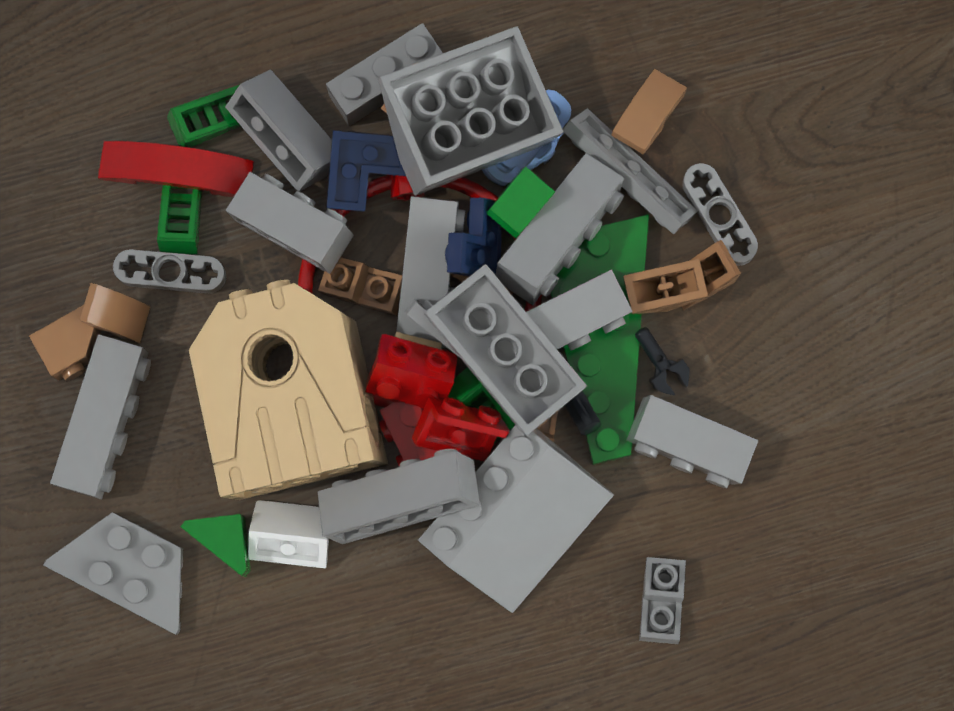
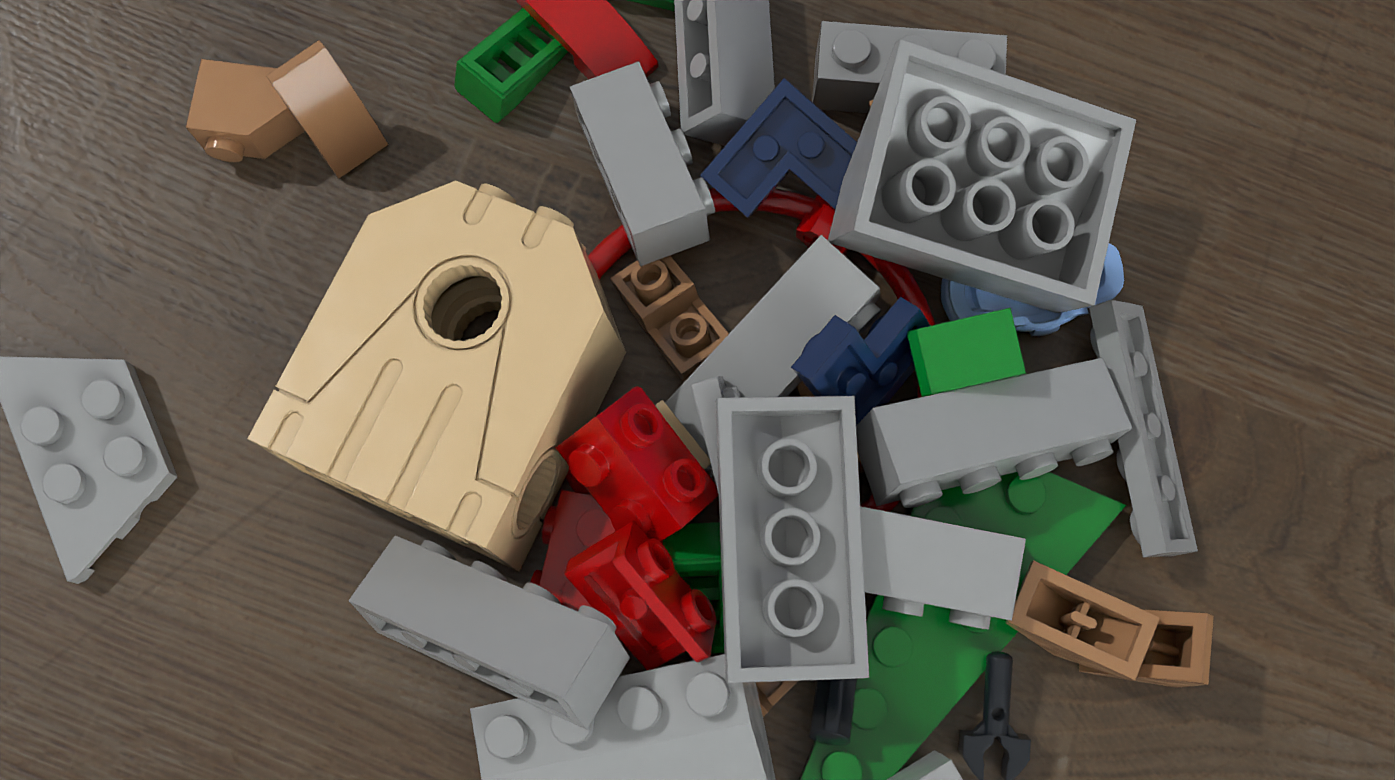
camera: 35 degrees right, 5 degrees down
(100, 417) = (206, 231): light grey brick -> none
(142, 259) = (437, 93): light grey beam -> none
(223, 537) = (227, 507): green slope -> none
(287, 535) = (314, 561): white panel -> none
(648, 111) = (1225, 369): medium nougat slope -> none
(715, 184) = (1248, 533): light grey beam -> none

